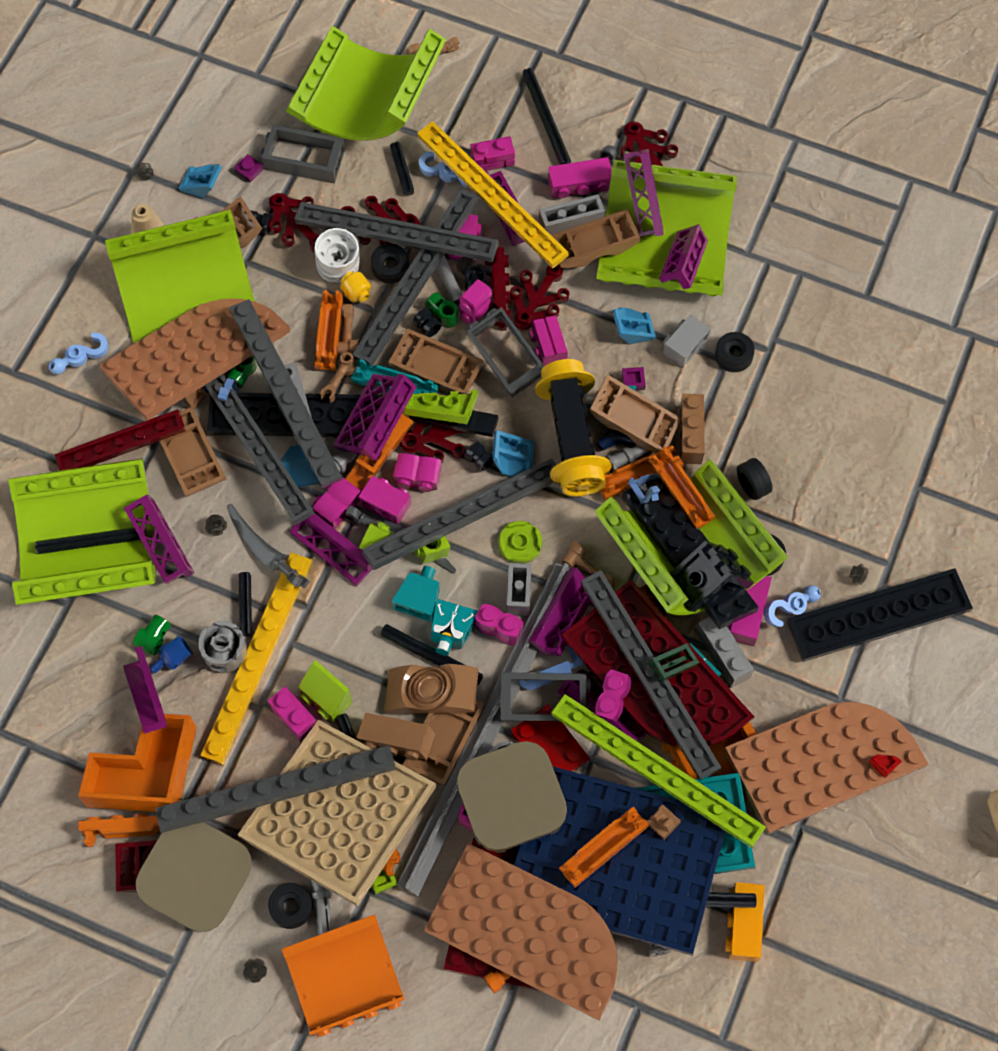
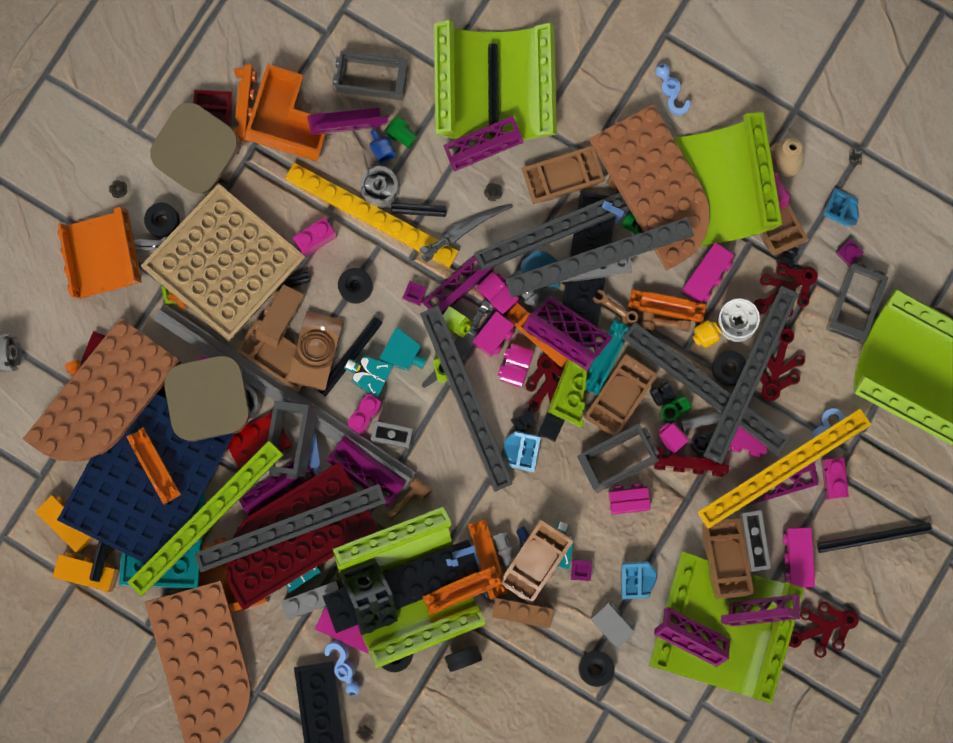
camera: 105 degrees right, 15 degrees up
(82, 644) = (370, 59): none -> dark grey window
(122, 441) = (577, 118): dark red plate -> none
(274, 789) = (245, 215): dark grey plate -> none
(287, 294) = (708, 274): none -> dark pink brick
(324, 692) = (327, 264): lime slope -> none
(341, 648) = (347, 278): none -> black tyre
(347, 592) = (414, 293): none -> magenta plate
(402, 169) = (829, 393): black axle -> none
(520, 542) = (440, 445): lime tile -> none
(537, 298) = (674, 496): dark red plant -> none
(564, 386) = (533, 502): brick -> none
(608, 151) = (825, 590): dark grey hinge -> none
(615, 688) = (275, 494): dark pink brick -> none
(660, 669) = (289, 534): dark green tile -> none
(663, 822) = (164, 516): medium nougat tile -> none
(684, 968) = (50, 511): none -> light orange brick
(884, 763) = (188, 713): red tile -> none

